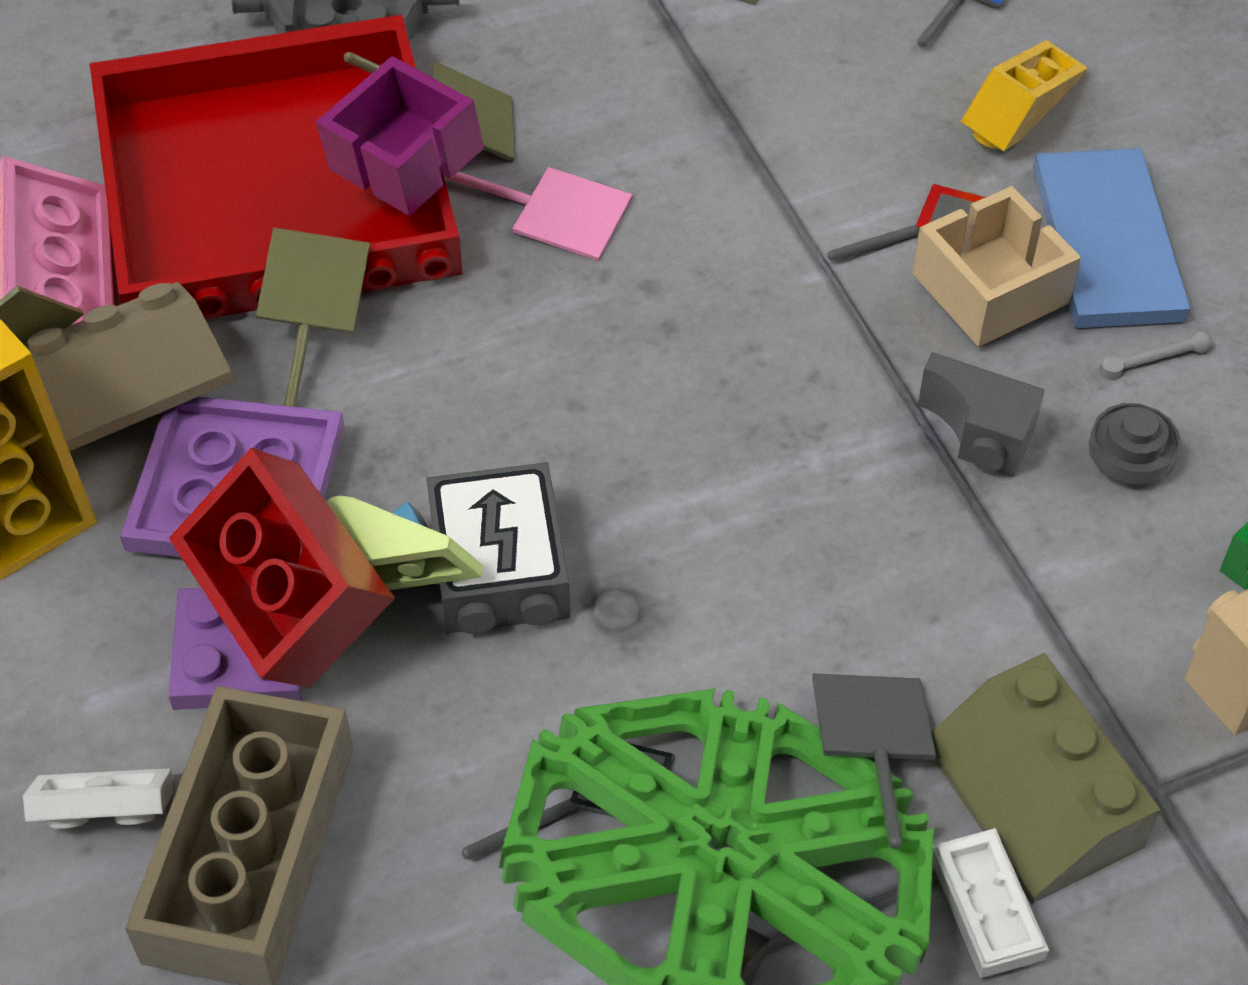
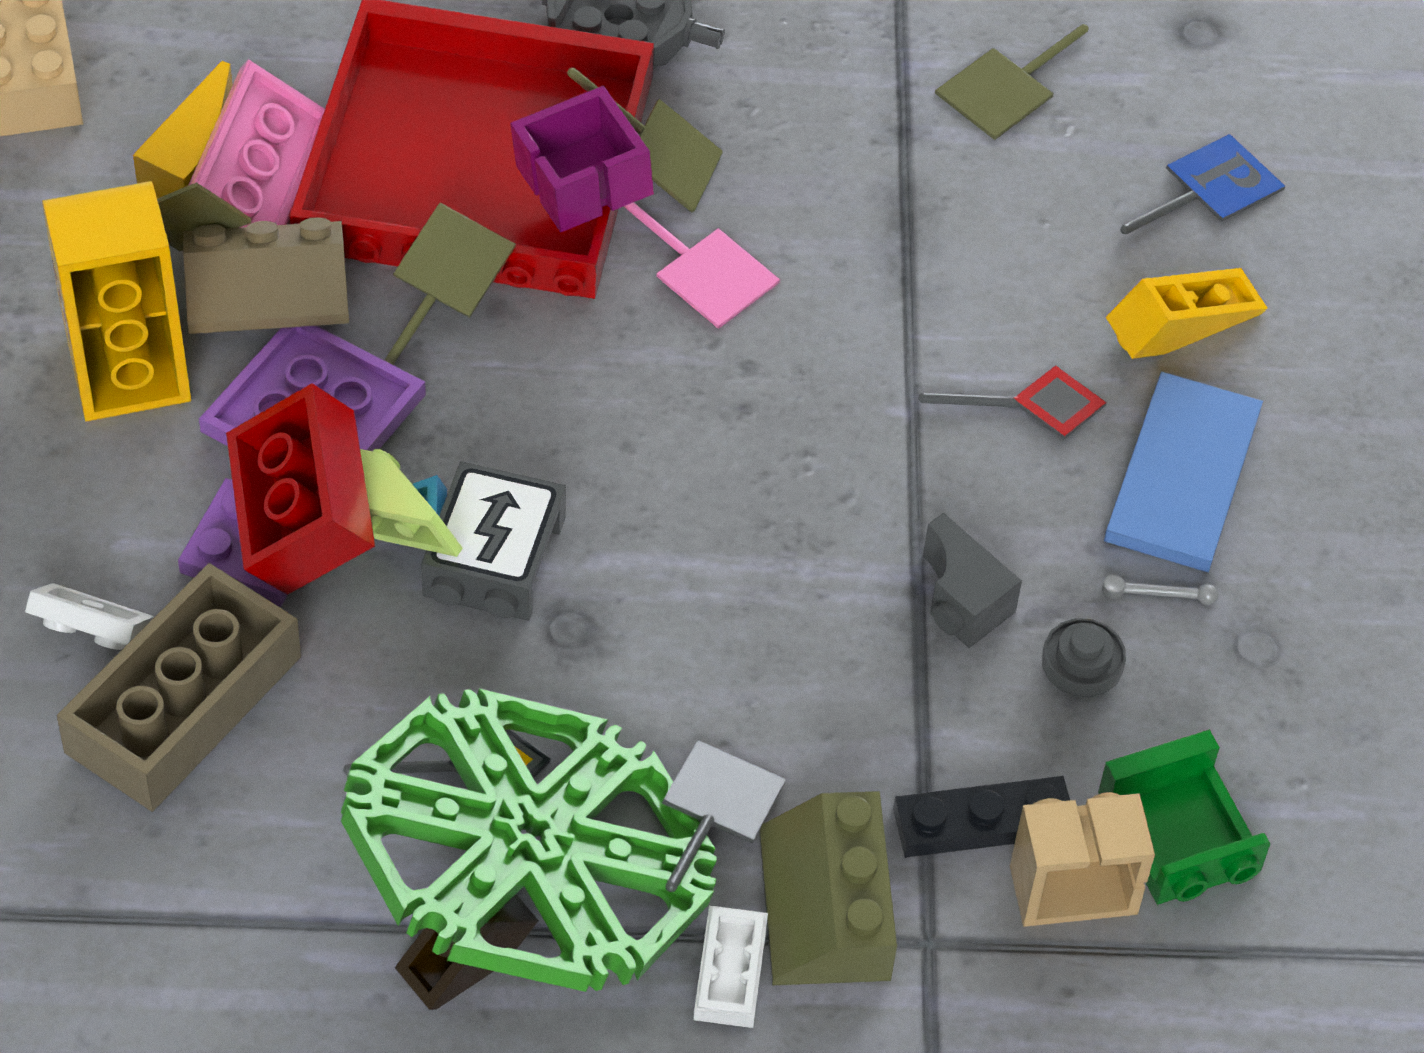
camera: 20 degrees right, 0 degrees up
(992, 282) = (1050, 474): tan piece -> none
(1133, 637) = (969, 815): none -> black plate

